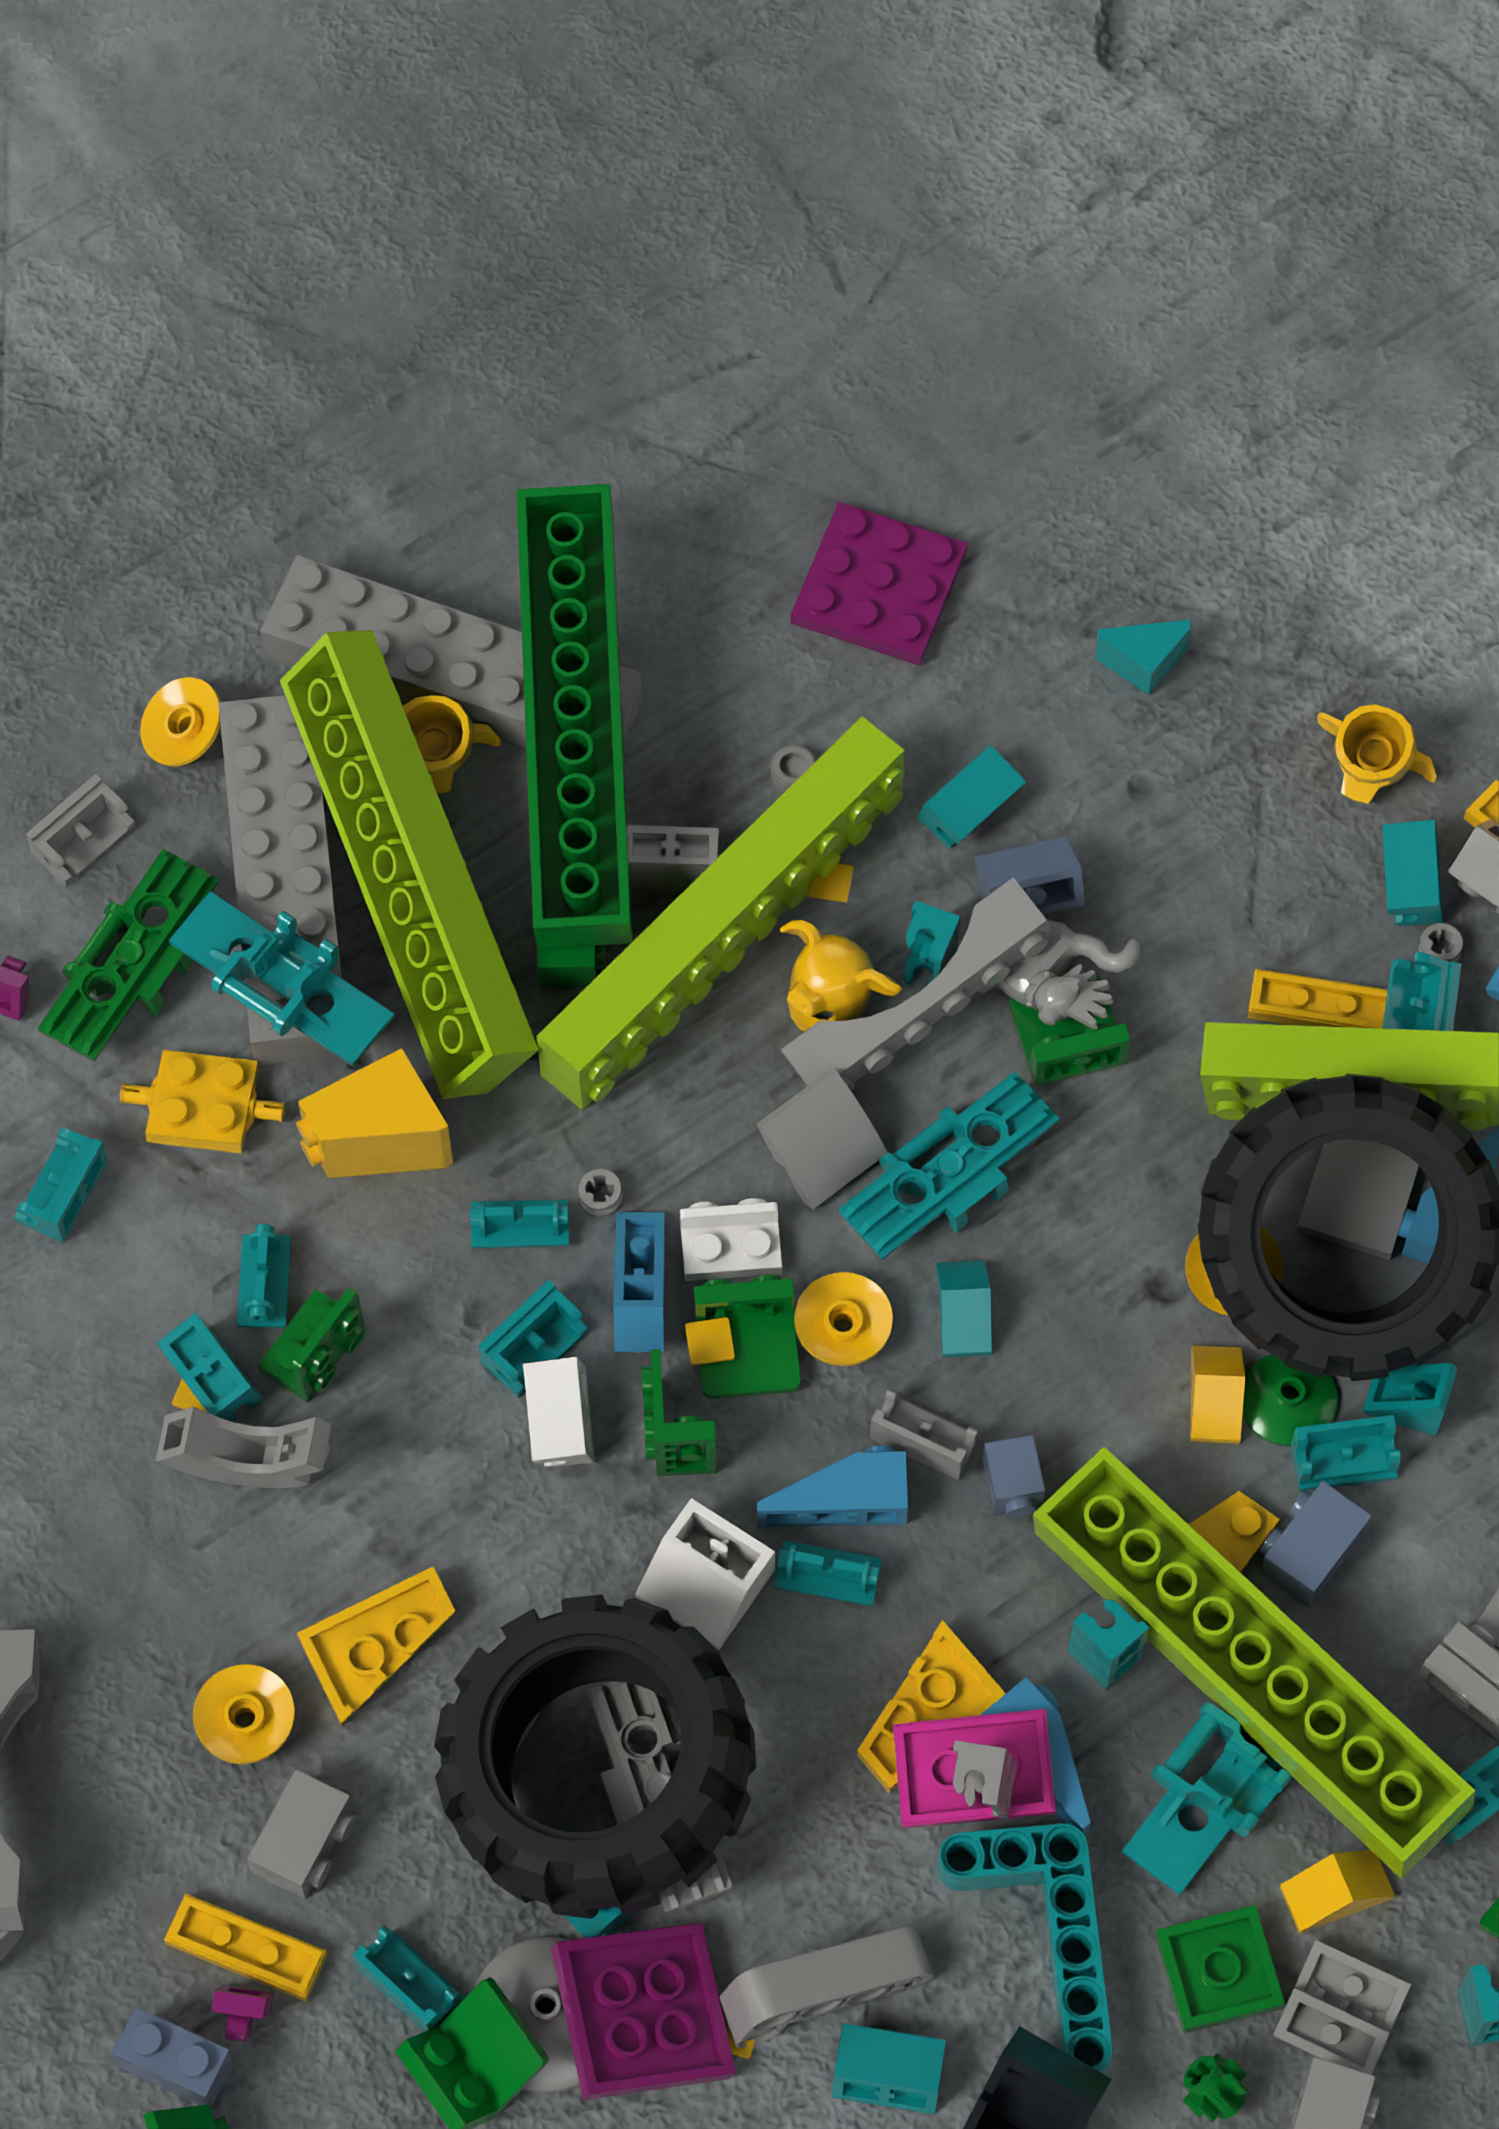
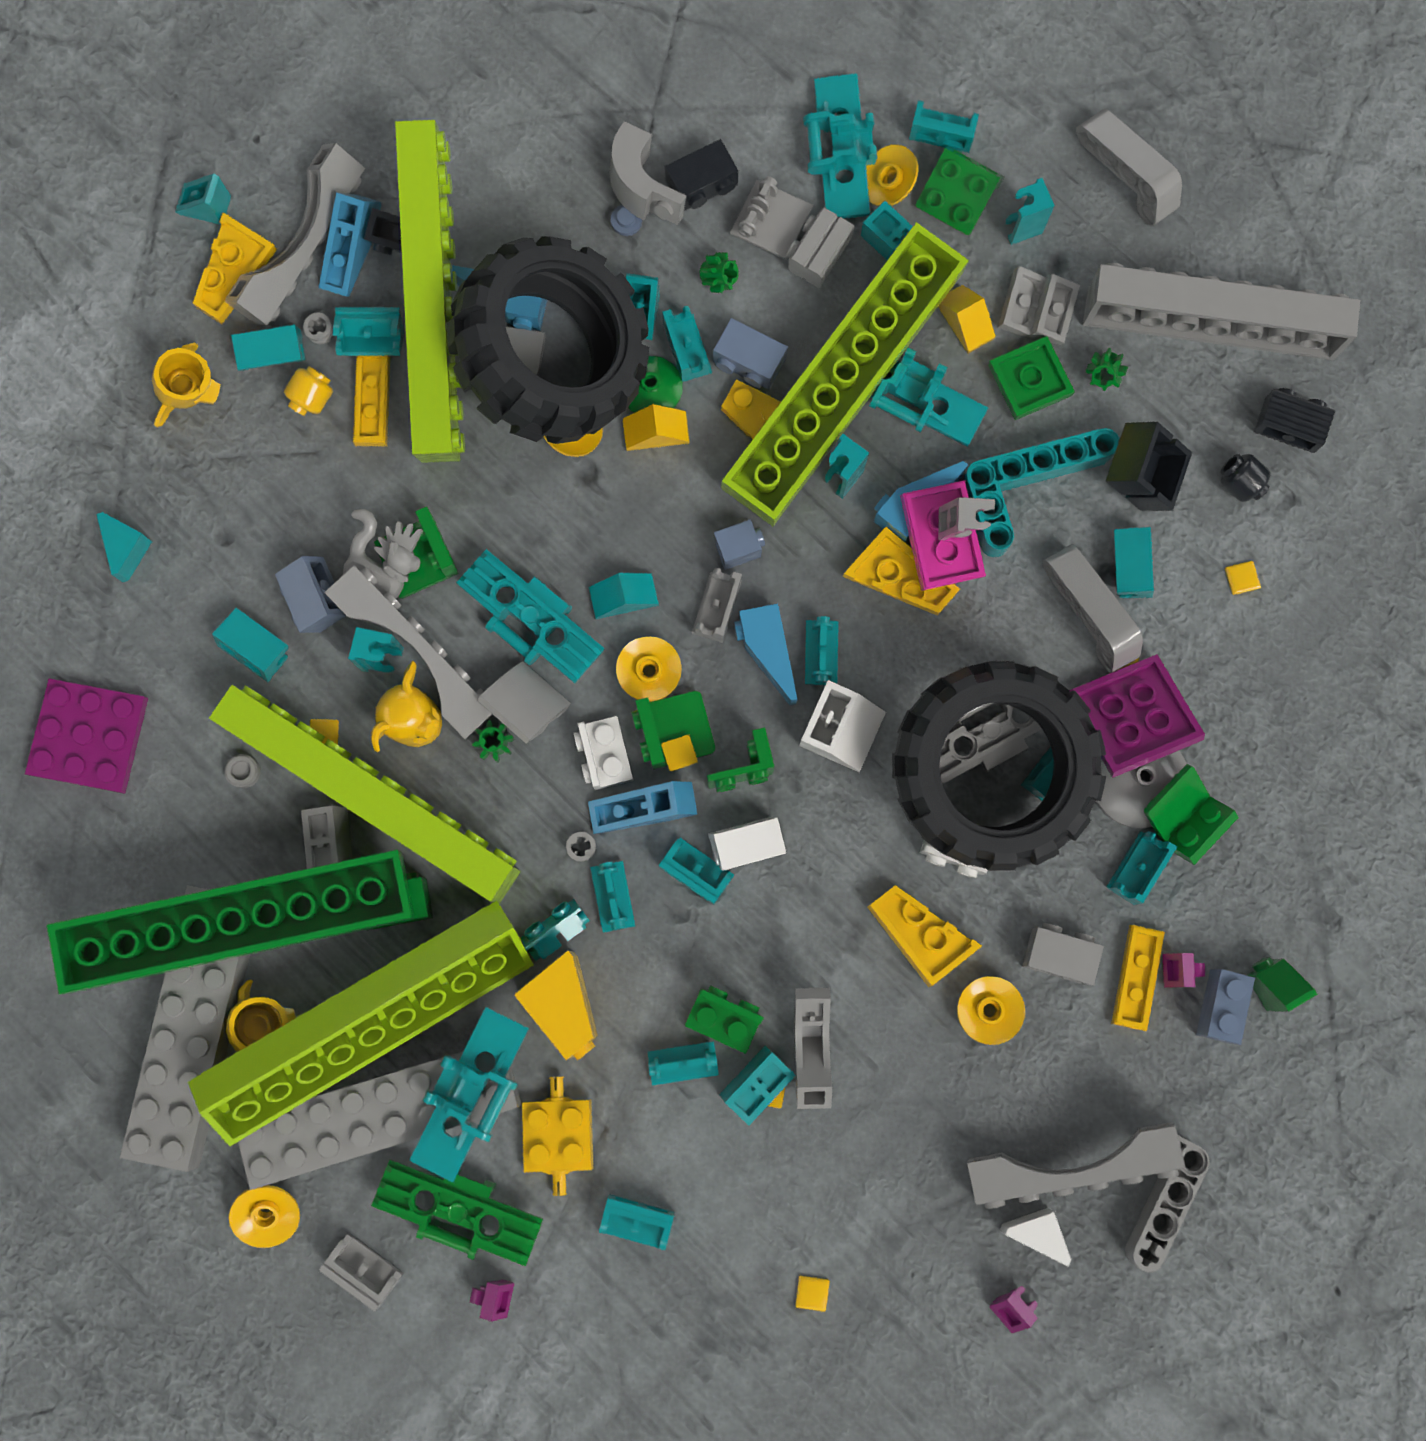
camera: 100 degrees left, 15 degrees up
(481, 1121) = (543, 934): none -> teal hinge
(771, 1081) = (492, 732): none -> green gear
(1340, 916) = (308, 391): none -> yellow head
(1454, 1517) = (719, 272): none -> green gear

